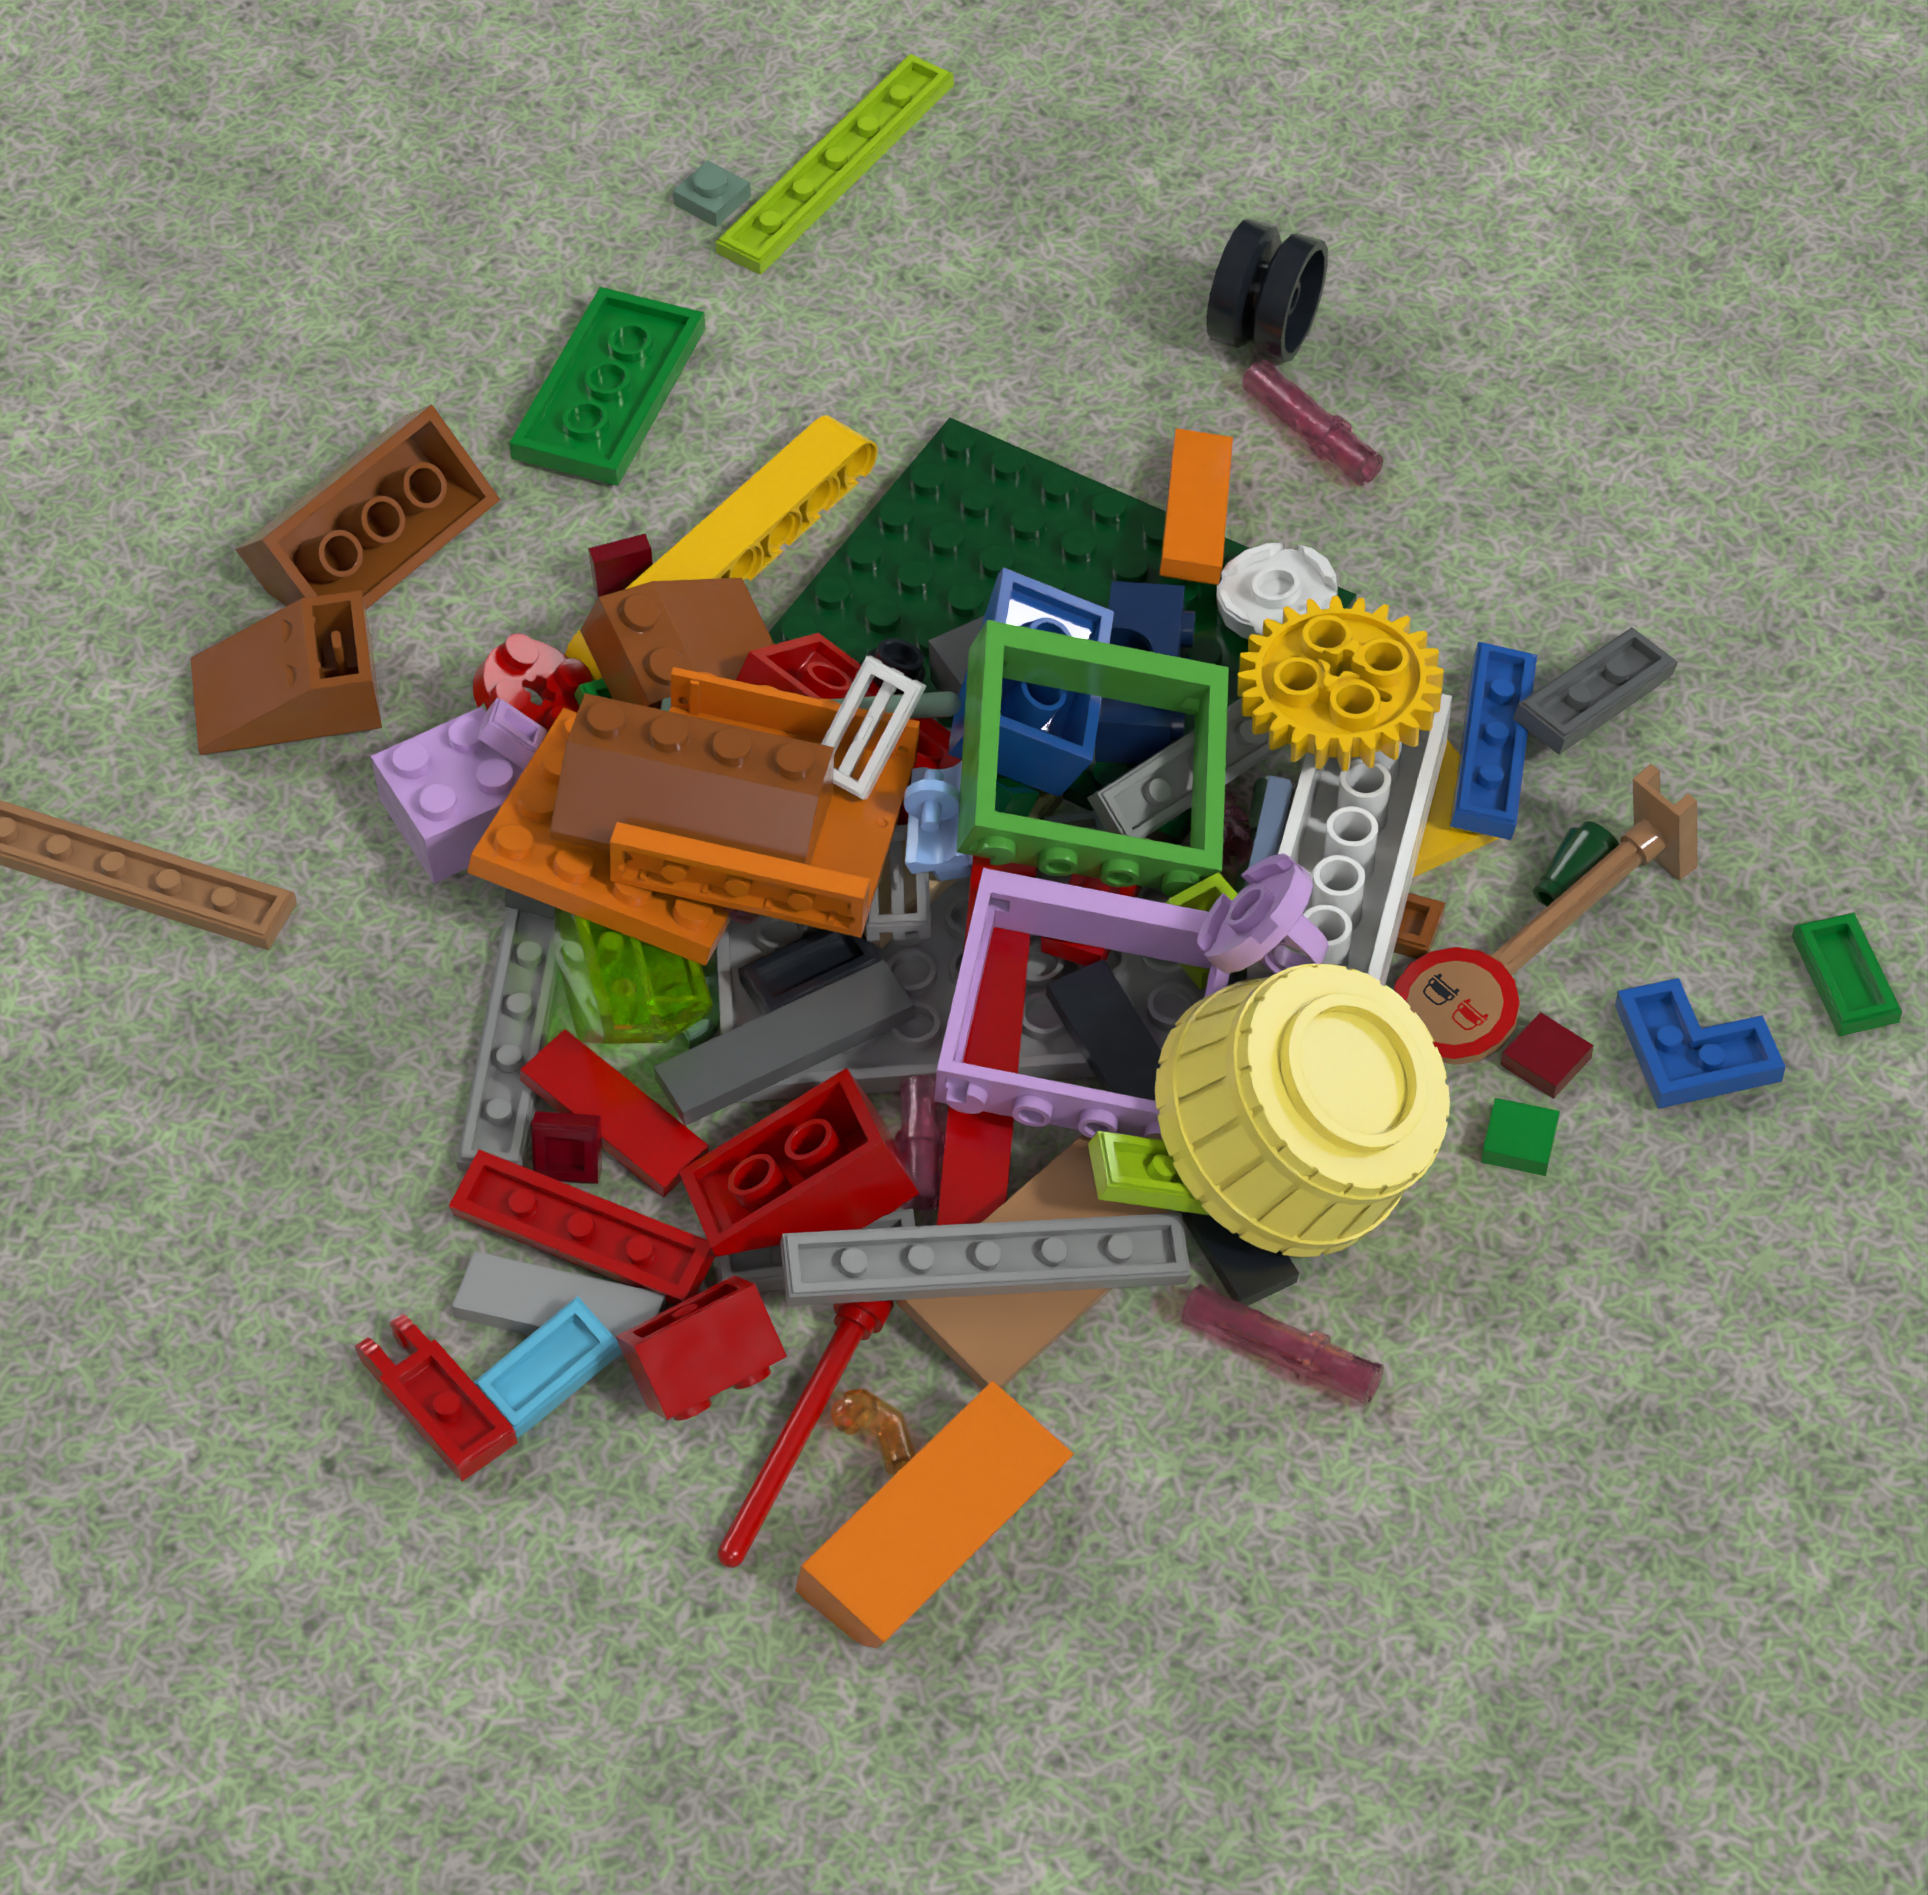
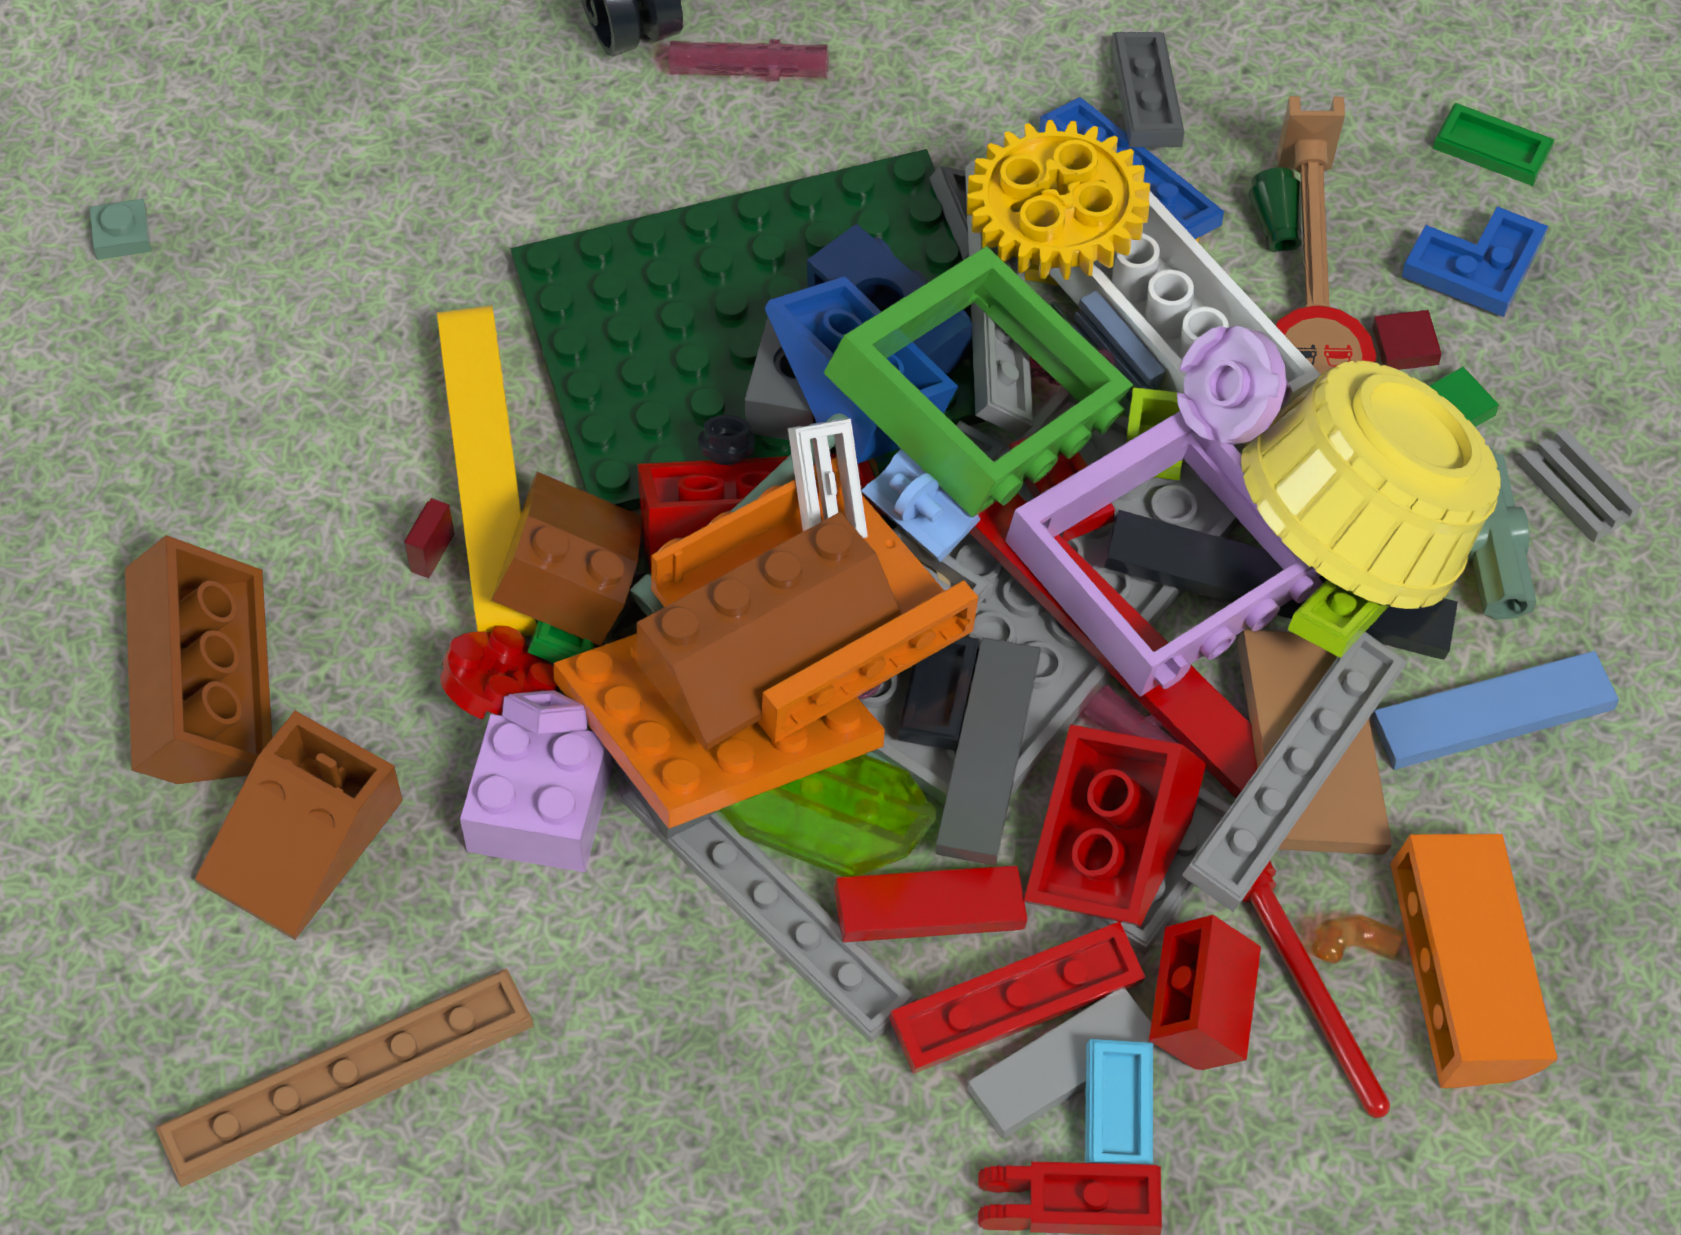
camera: 50 degrees left, 5 degrees up
(567, 1146) = (936, 954): dark red tile -> none
(607, 386) = (238, 423): green plate -> none
(834, 164) = (182, 140): lime tile -> none
(1196, 507) = (764, 171): orange tile -> none
(1220, 1378) = (1494, 710): none -> medium blue tile
(1267, 580) = (894, 185): white tile -> none
(1307, 1355) = (1527, 646): clear pink pin -> none
(1398, 1250) = (1501, 556): none -> sand green piece
(1541, 1238) = (1586, 478): none -> light grey tile

